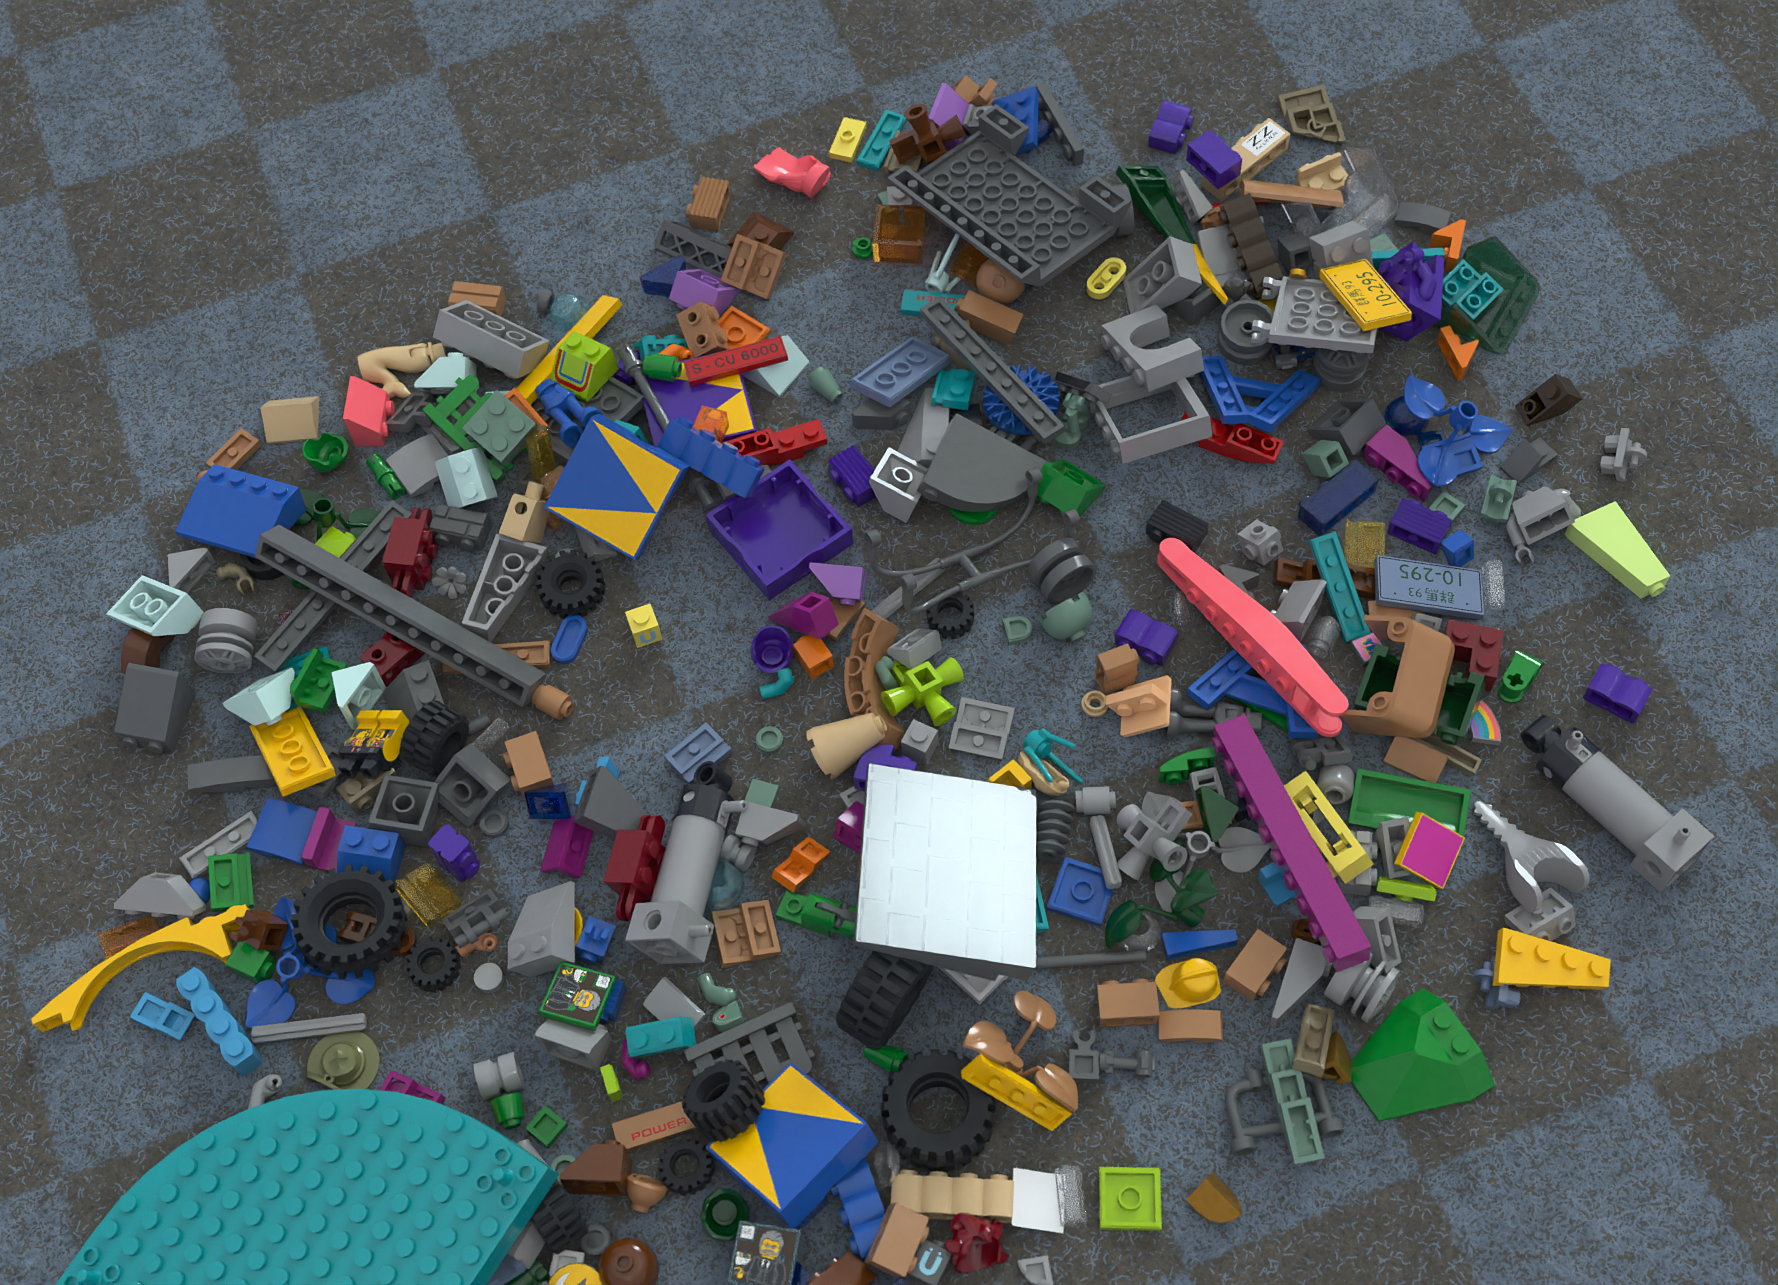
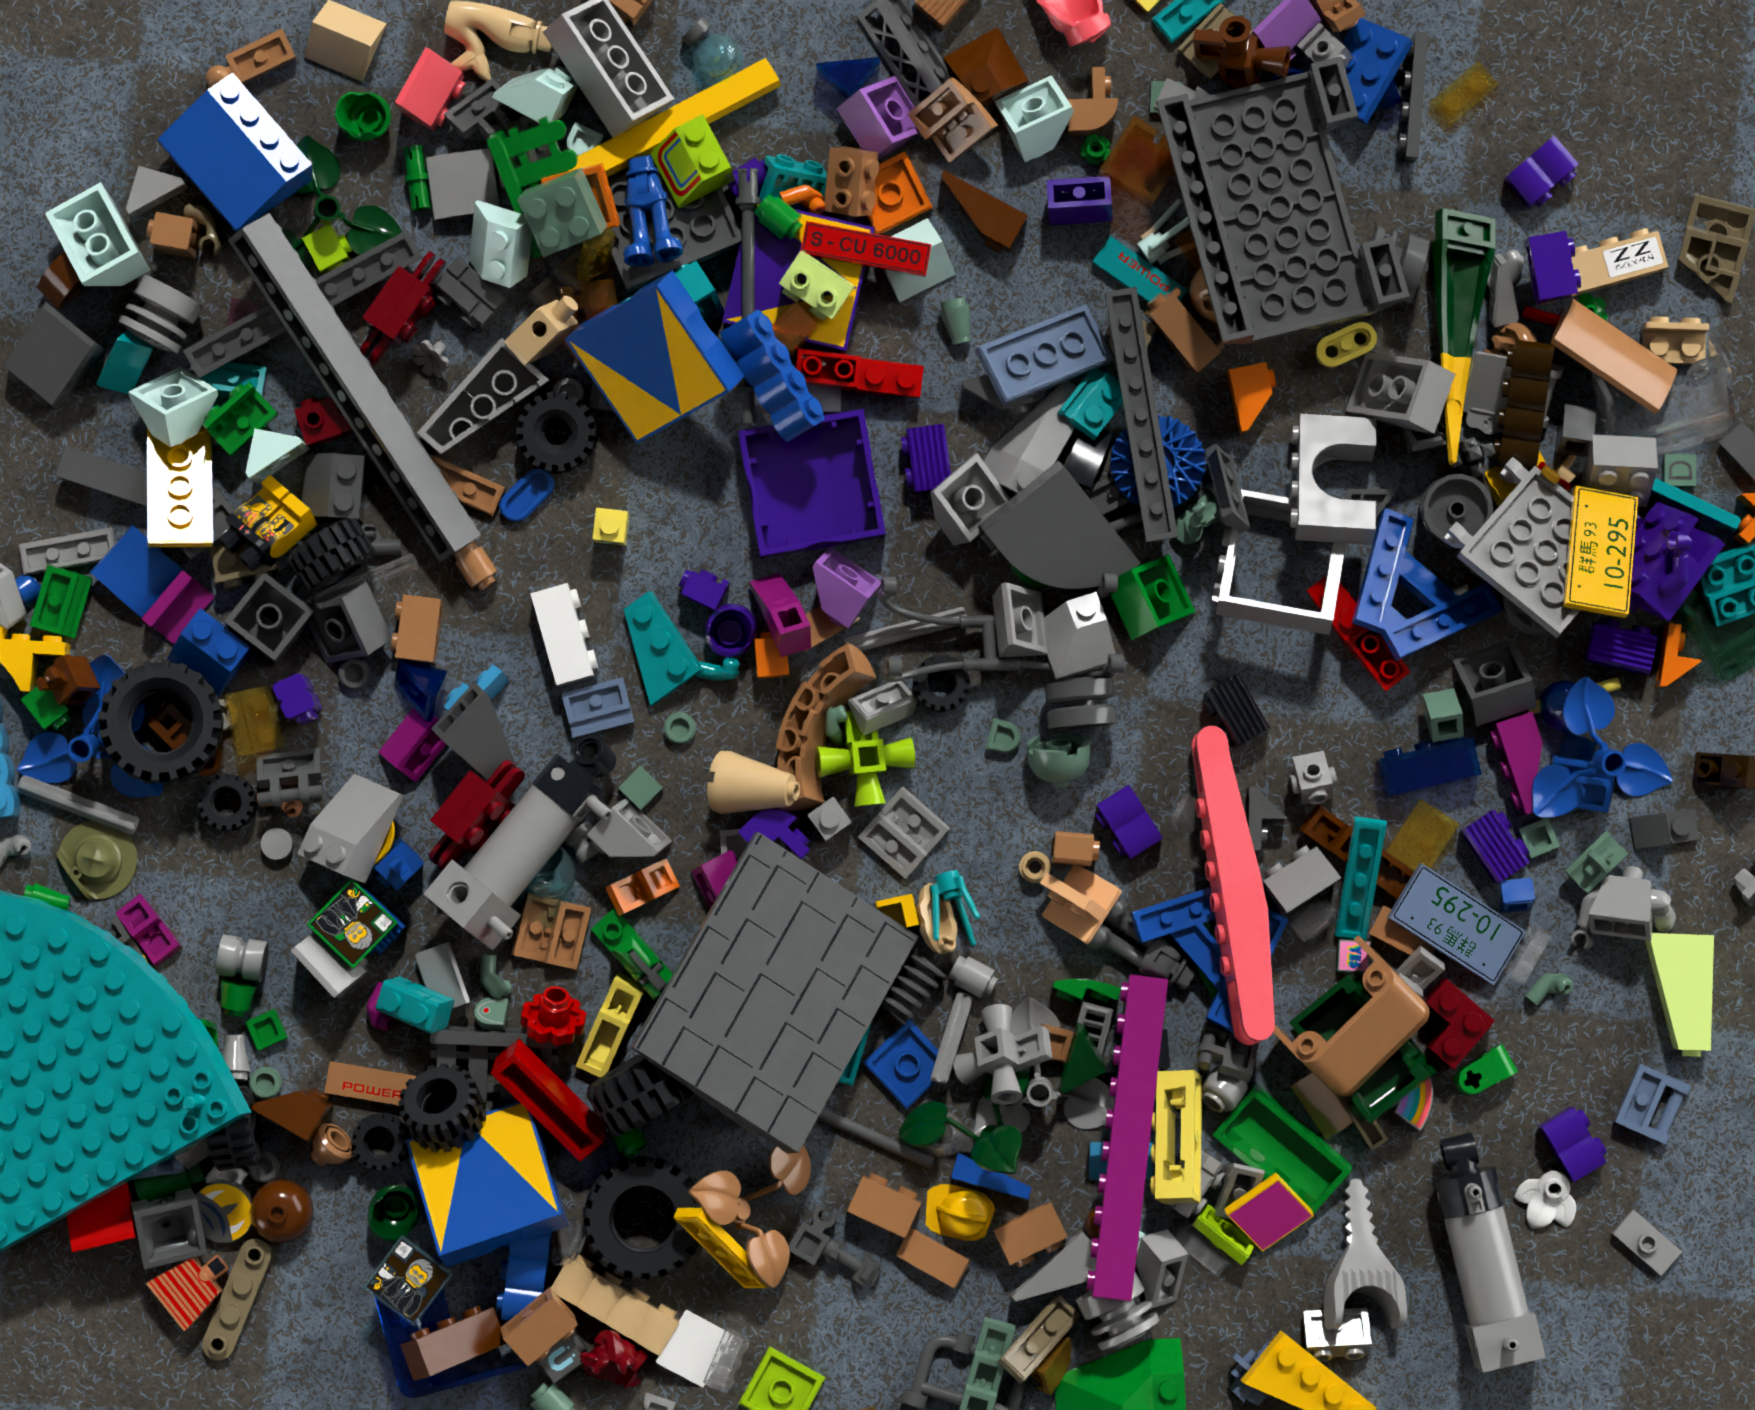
camera: 20 degrees right, 25 degrees up
(212, 688) = (125, 363): none -> teal slope
(214, 584) = (174, 235): none -> medium nougat brick
(611, 1083) = (347, 1021): lime tile -> none
(645, 715) = (564, 634): none -> white brick
(712, 390) = (818, 281): none -> yellowish green brick
(725, 691) = (659, 647): none -> teal wing
(735, 635) = (703, 588): none -> dark purple brick
(779, 987) = (553, 1017): none -> red plant
(808, 313) = (989, 216): none -> reddish brown slope
(810, 1053) = (549, 1100): none -> red brick
(812, 246) = (1035, 117): none -> light aqua slope
(829, 976) = (610, 1025): none -> light yellow slope
(847, 224) = (1096, 113): none -> medium nougat brick
(870, 274) = (1079, 200): none -> dark purple brick
(981, 540) = (1019, 621): none -> light grey slope
(1029, 529) = (1078, 637): none -> light grey slope
(1057, 333) = (1250, 391): none -> orange slope
(1090, 111) = (1464, 93): none -> clear yellow plate
(1423, 362) = (1621, 647): none -> dark purple brick
(1524, 597) = (1549, 983): none -> sand green arm
(1626, 746) = (1545, 1204): none -> white plate
(1646, 642) = (1642, 1099): none -> sand blue plate
(1721, 736) = (1646, 1242): none -> light grey plate

